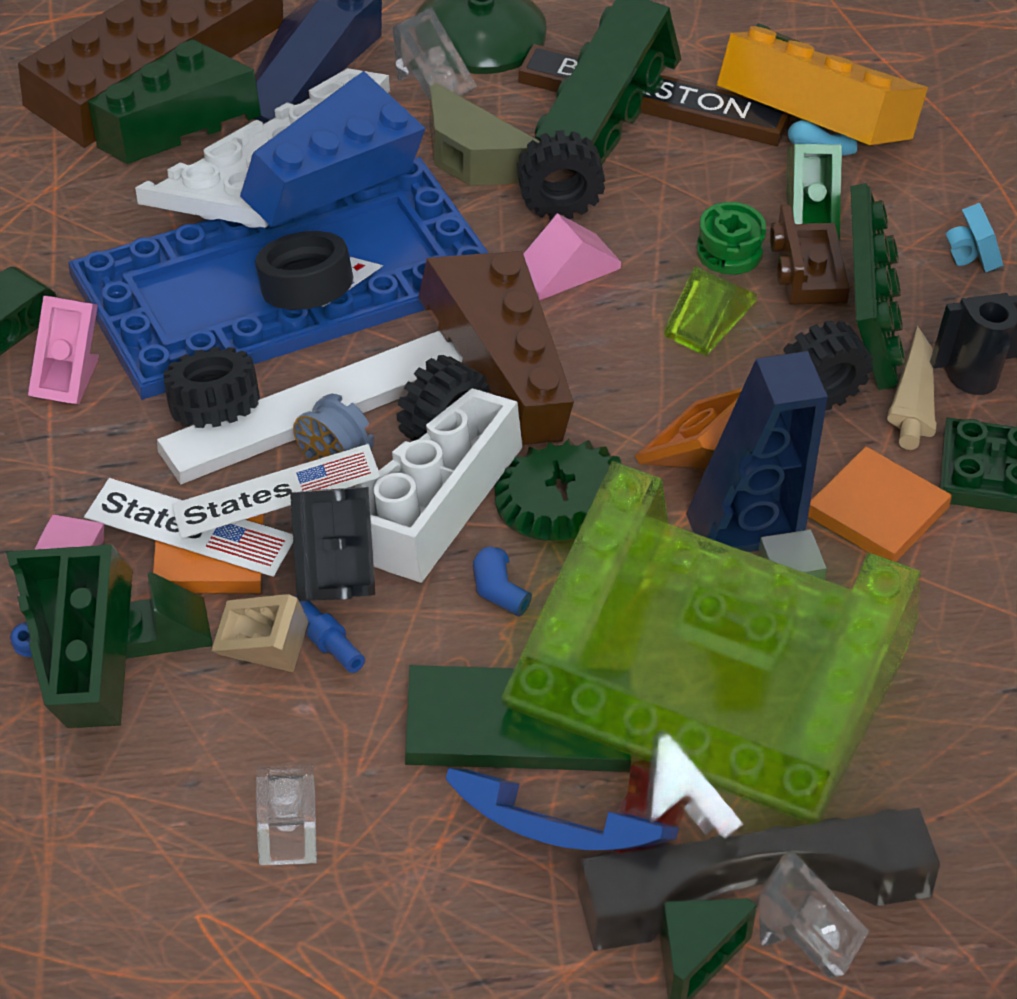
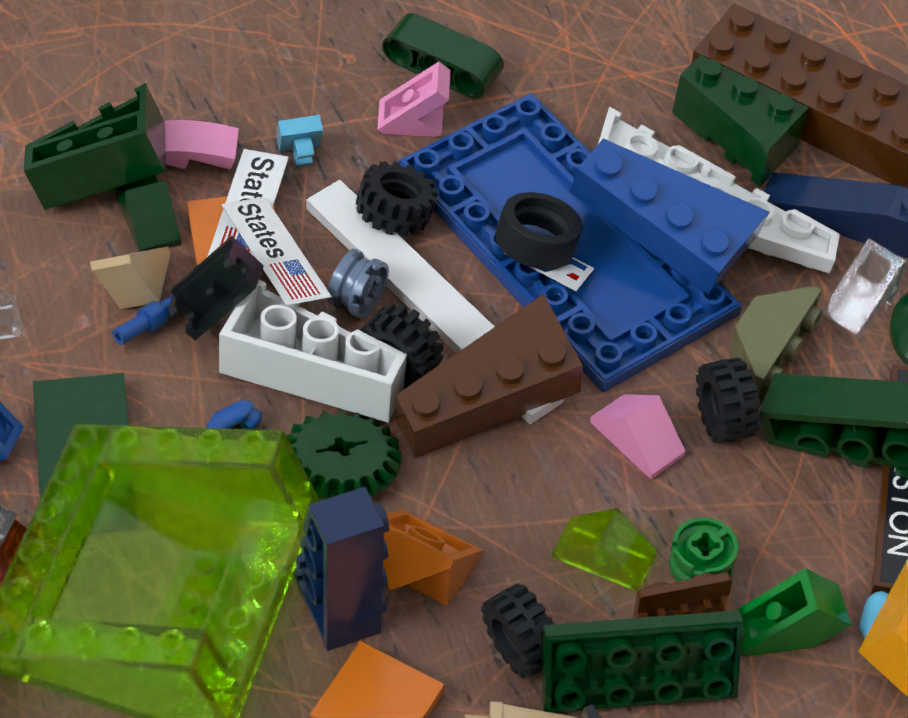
camera: 80 degrees right, 5 degrees up
(85, 463) = (300, 137): none -> medium azure tile
(795, 551) = (298, 638): light grey tile -> none

